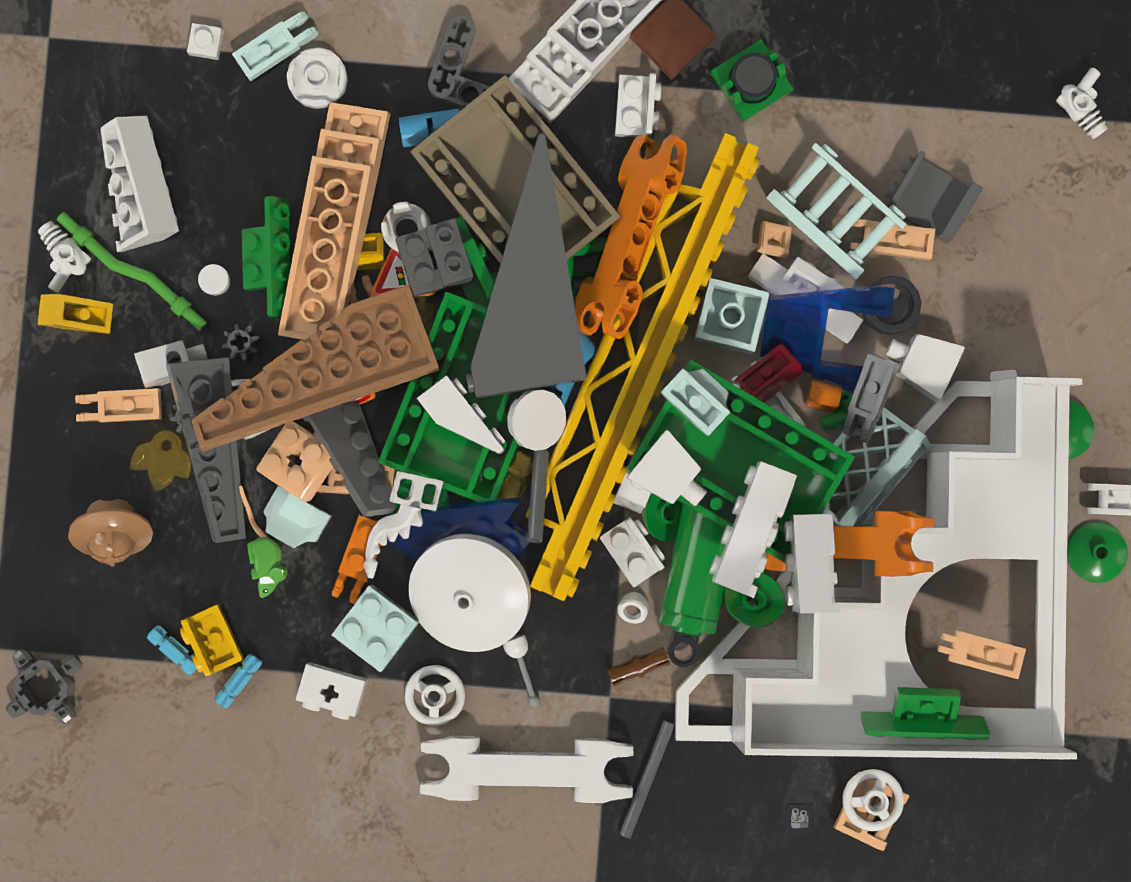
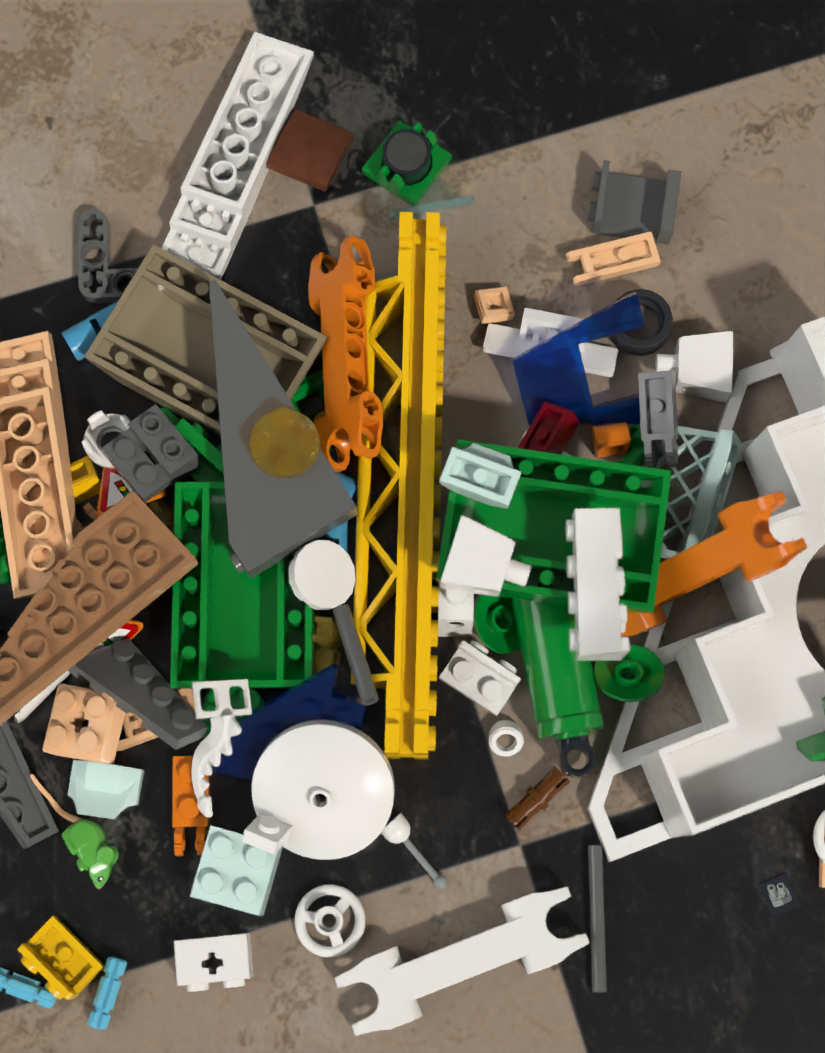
camera: 15 degrees left, 10 degrees down
(411, 610) = (267, 833): none -> white plate
(452, 411) = (231, 601): white slope -> none
(548, 302) = (284, 443): none -> clear yellow dish
(636, 105) = (301, 230): white bracket -> none
(731, 316) = (482, 395): light aqua brick -> none
(754, 134) = (433, 207): none -> clear light blue piece
(808, 219) = (550, 284): light aqua fence -> none
(811, 564) = (675, 596): white wedge -> none
(1079, 103) = (740, 61): white piece -> none

